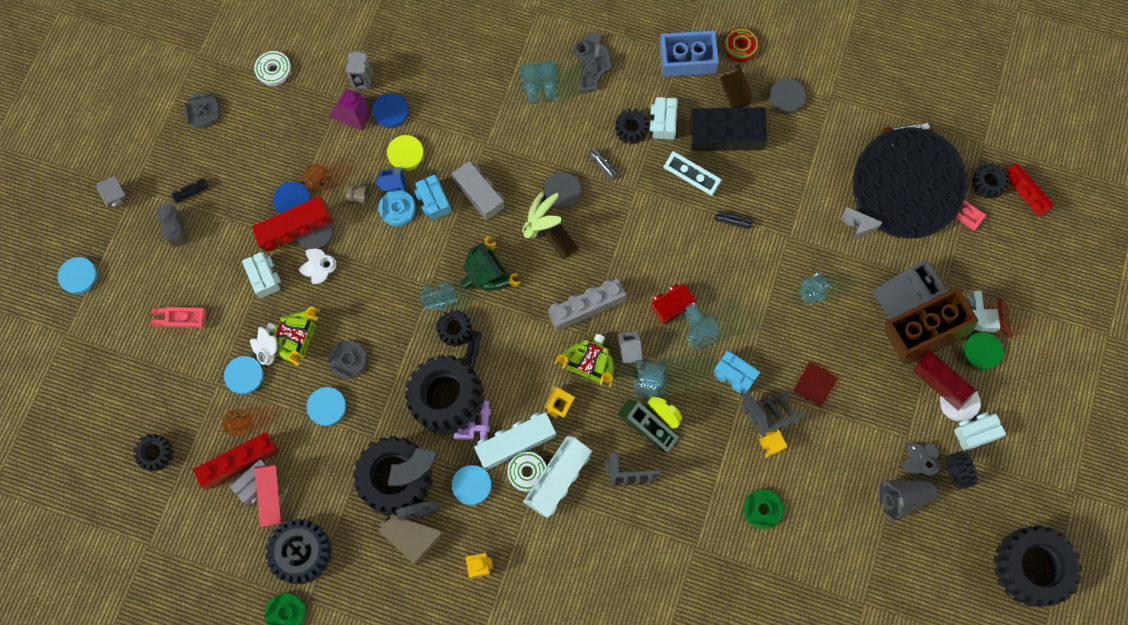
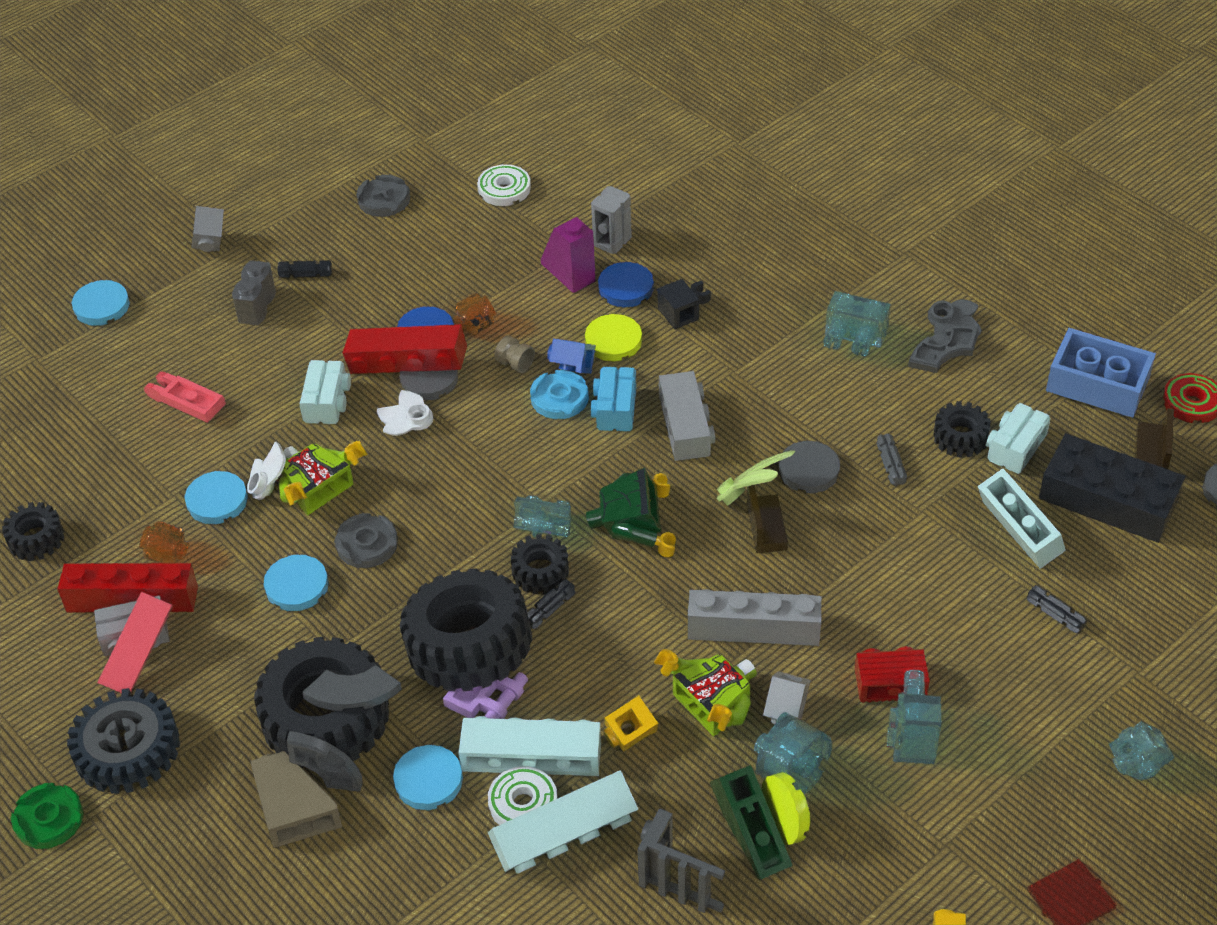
camera: 30 degrees right, 25 degrees down
(431, 110) = (681, 303): none -> black brick
(479, 565) = (361, 886): yellow brick -> none
(736, 372) = (941, 812): medium azure brick -> none
(760, 418) = (943, 890): dark grey plate -> none

